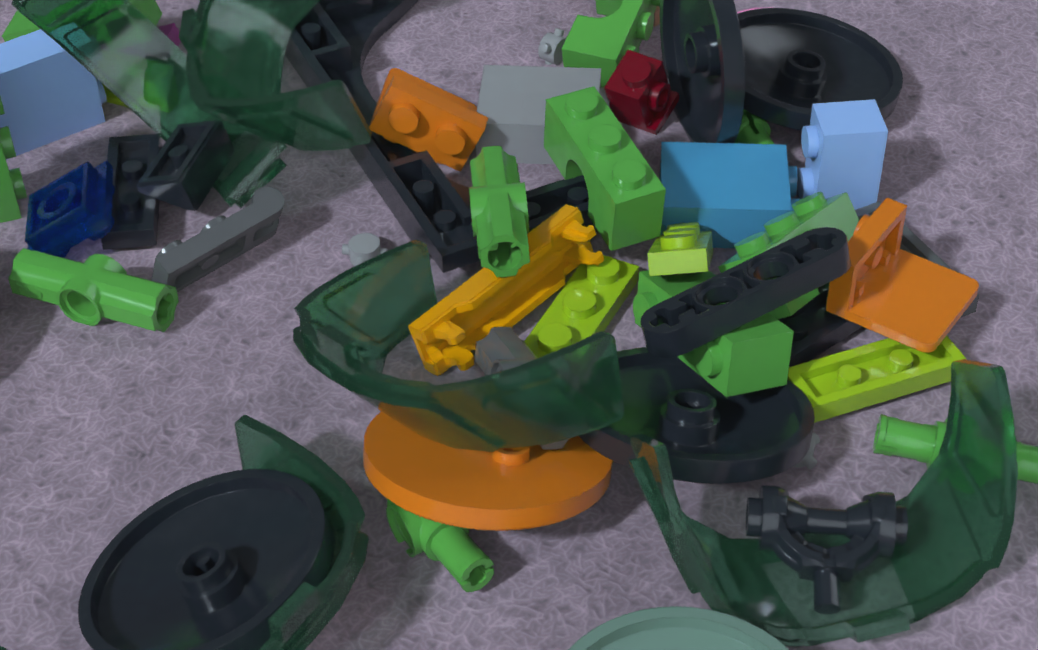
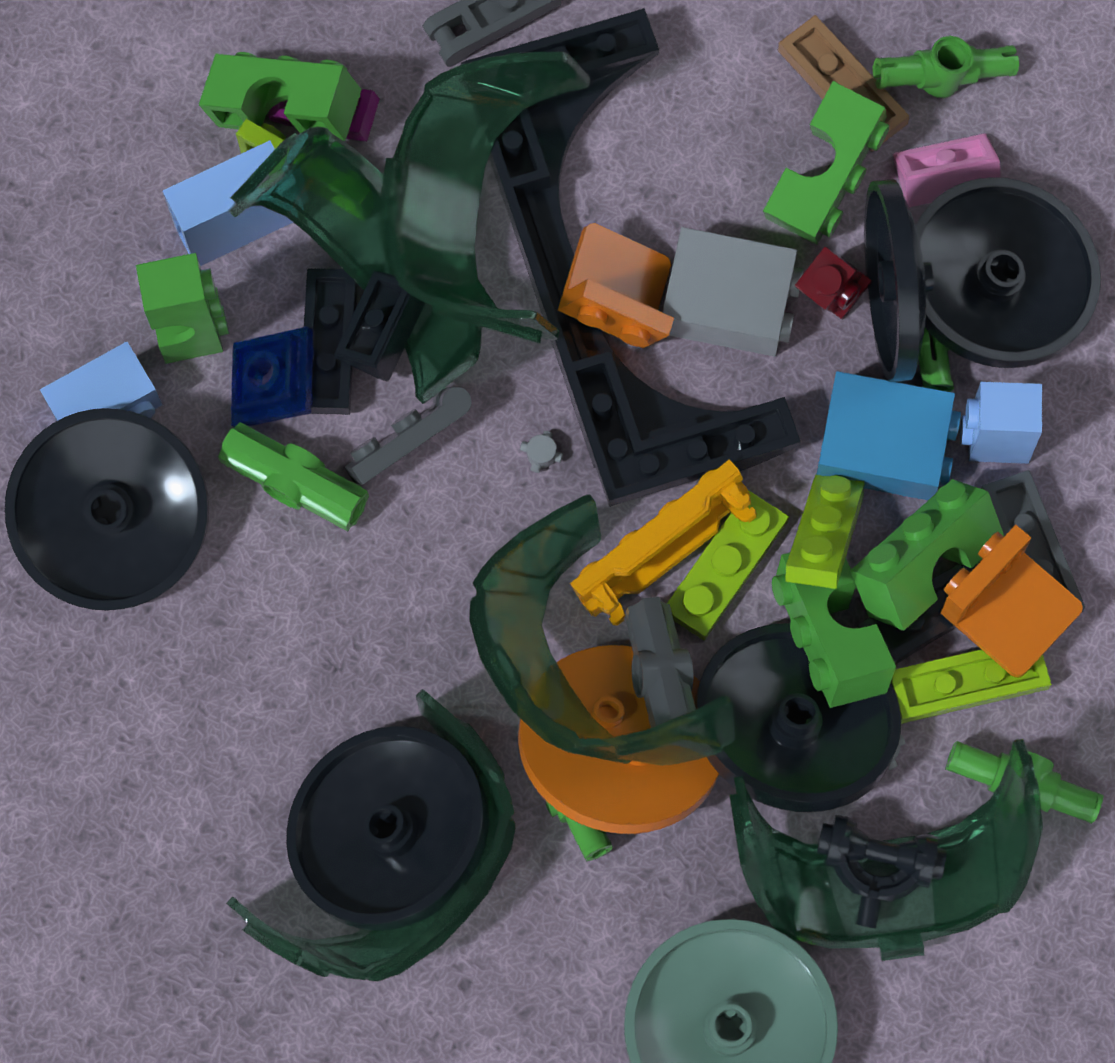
camera: 10 degrees right, 30 degrees up
(499, 212) = (665, 470): bright green piece -> none
(551, 47) = (760, 177): light grey piece -> none
(621, 185) = (772, 423): bright green arch -> none
(696, 319) = (866, 637): black beam -> none

